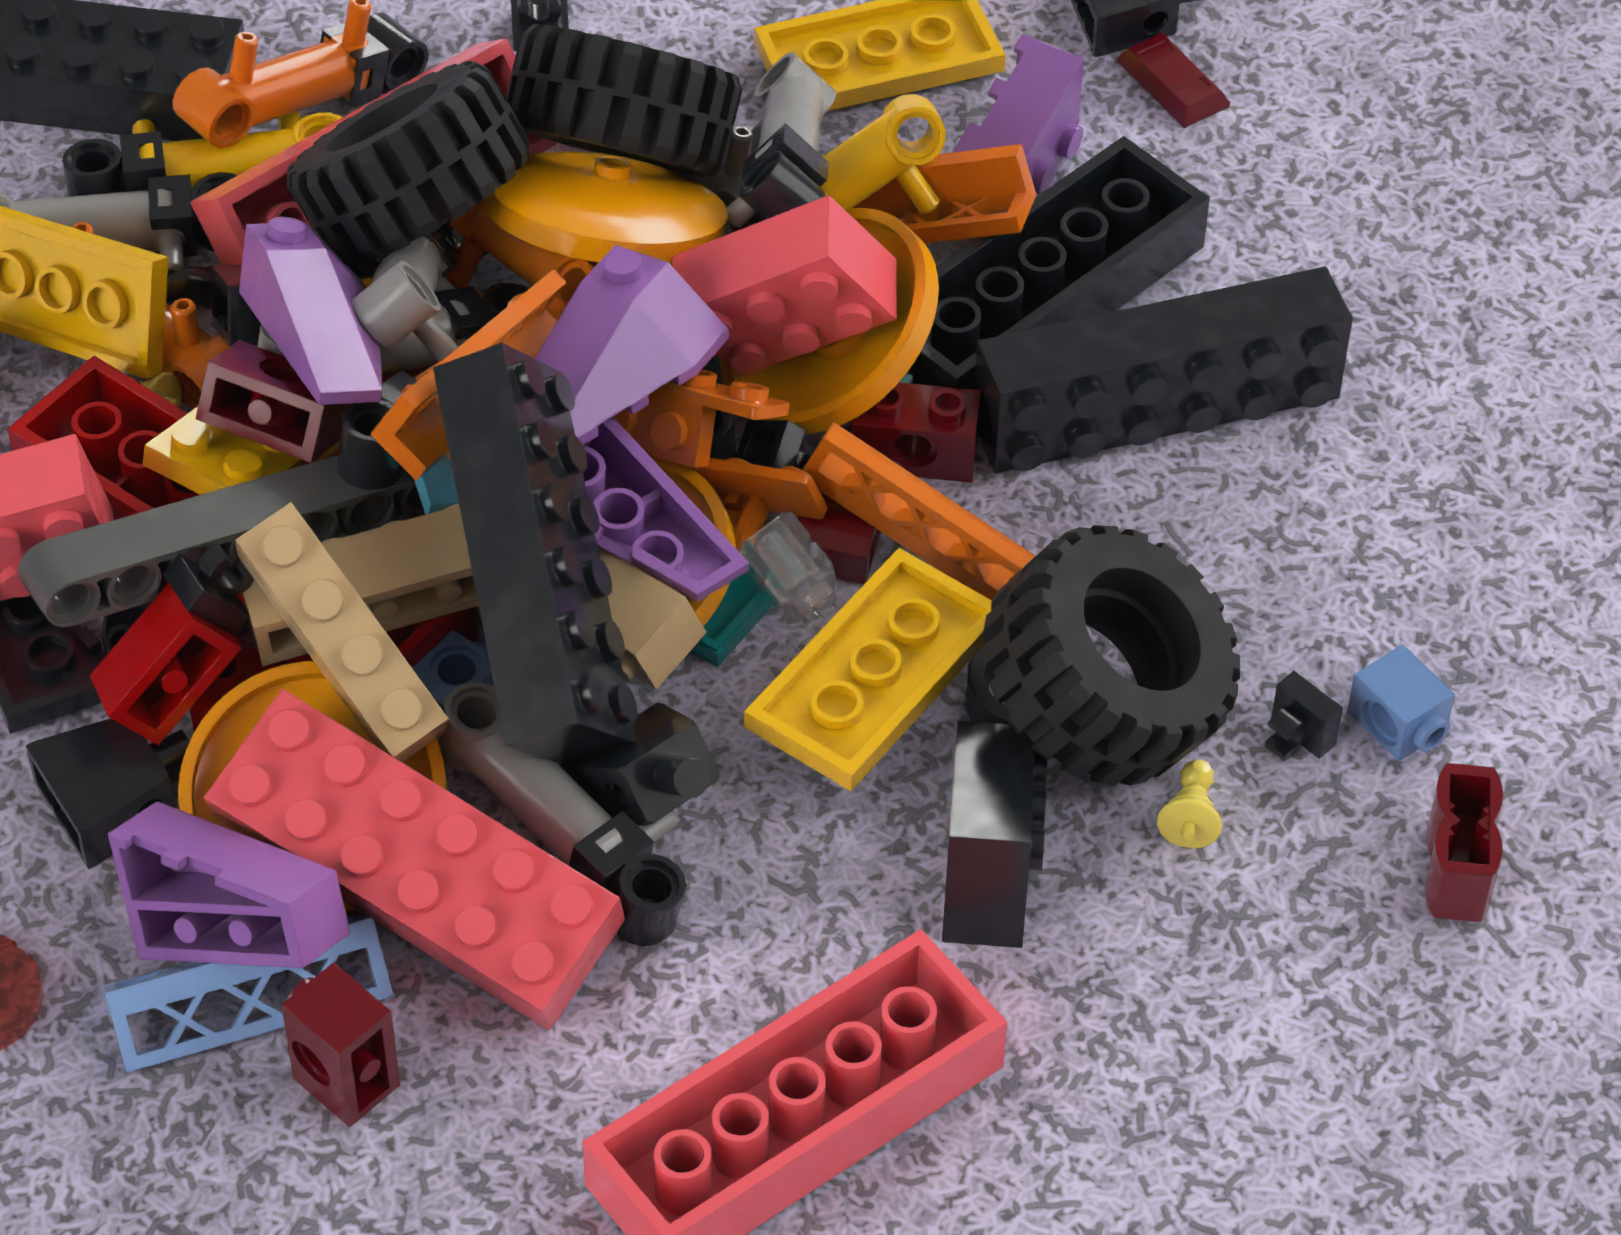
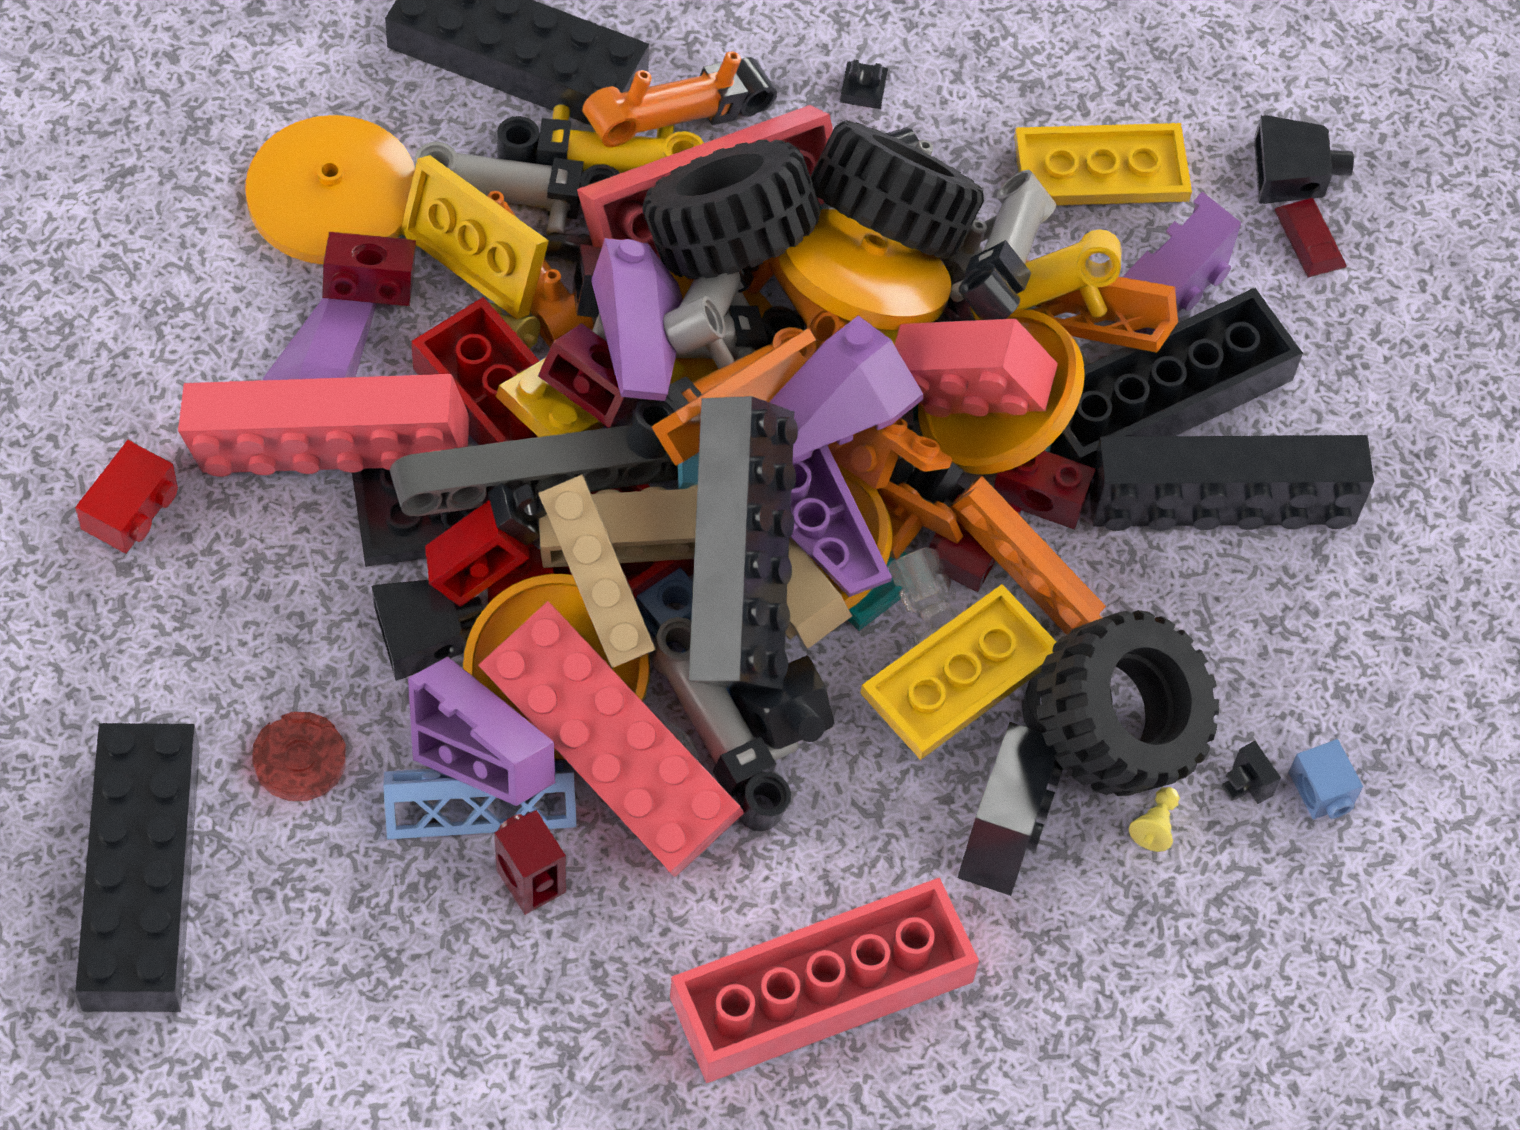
camera: 10 degrees right, 10 degrees up
(1464, 842) = (1336, 899): dark red brick -> none

